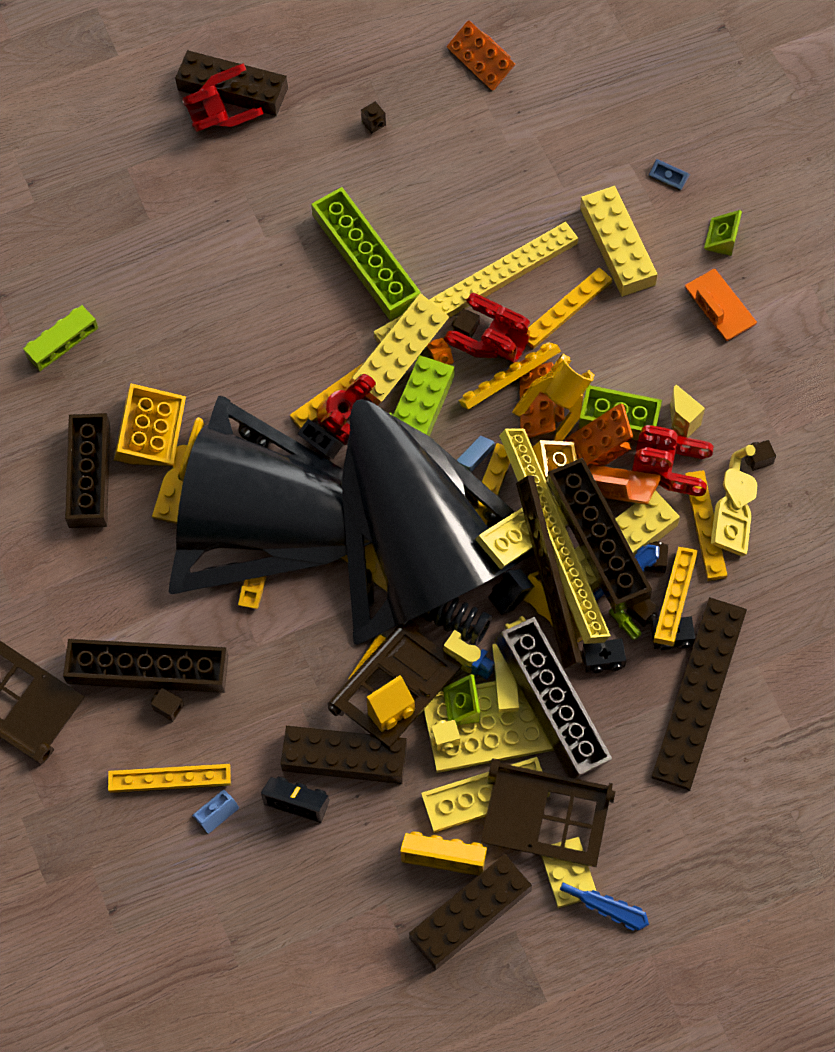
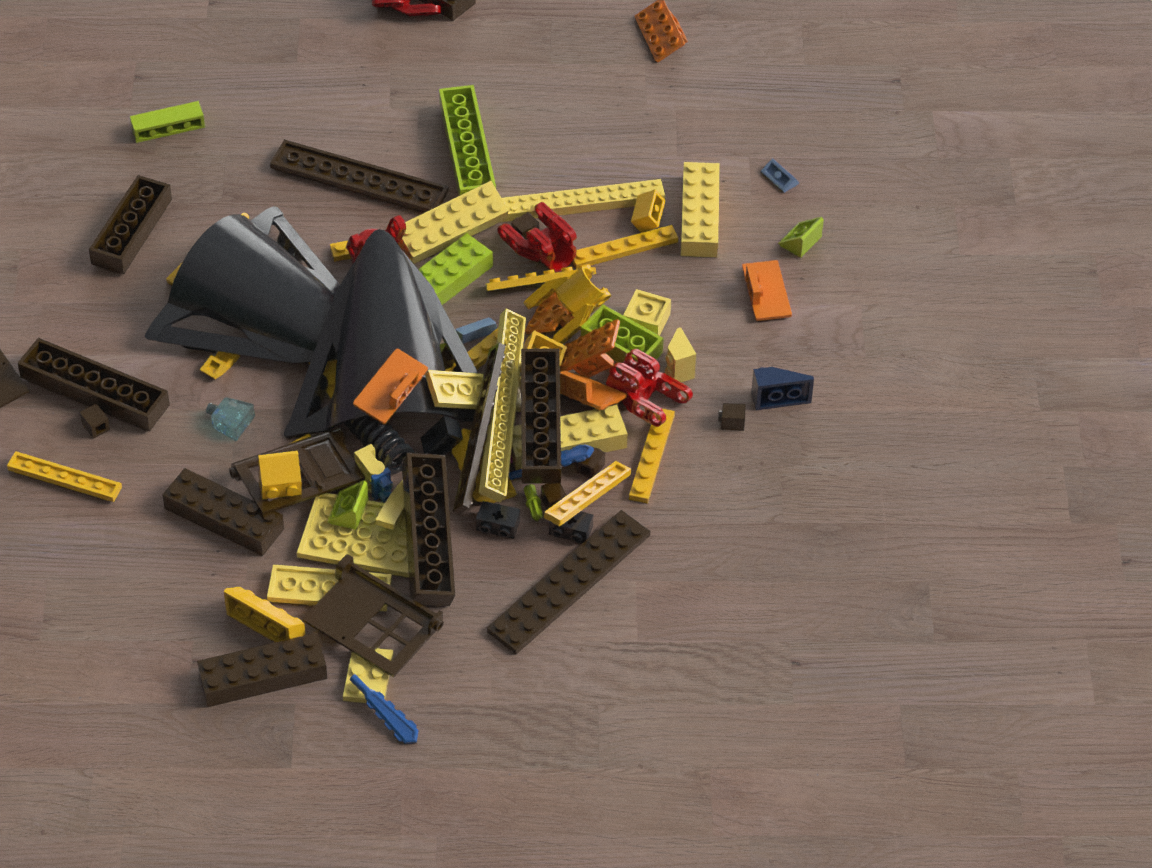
camera: 20 degrees right, 15 degrees down
(149, 426) = (200, 207): yellow slope -> none
(216, 811) = (89, 517): medium blue slope -> none
(278, 328) = (358, 176): none -> dark brown plate
(295, 646) = (231, 416): none -> clear light blue torso
(295, 799) = (160, 529): black slope -> none
(320, 439) = (339, 262): black brick -> none
(373, 117) = (535, 46): dark brown brick -> none
(440, 351) = (490, 239): orange bracket -> none
(444, 735) = (318, 525): light yellow brick -> none
(453, 568) = (390, 386): none -> orange bracket
(572, 262) = (648, 211): none -> yellow brick
(629, 374) = (649, 310): none -> light yellow container
(732, 512) = (680, 449): light yellow plate -> none
(789, 409) = (780, 388): none -> dark blue slope

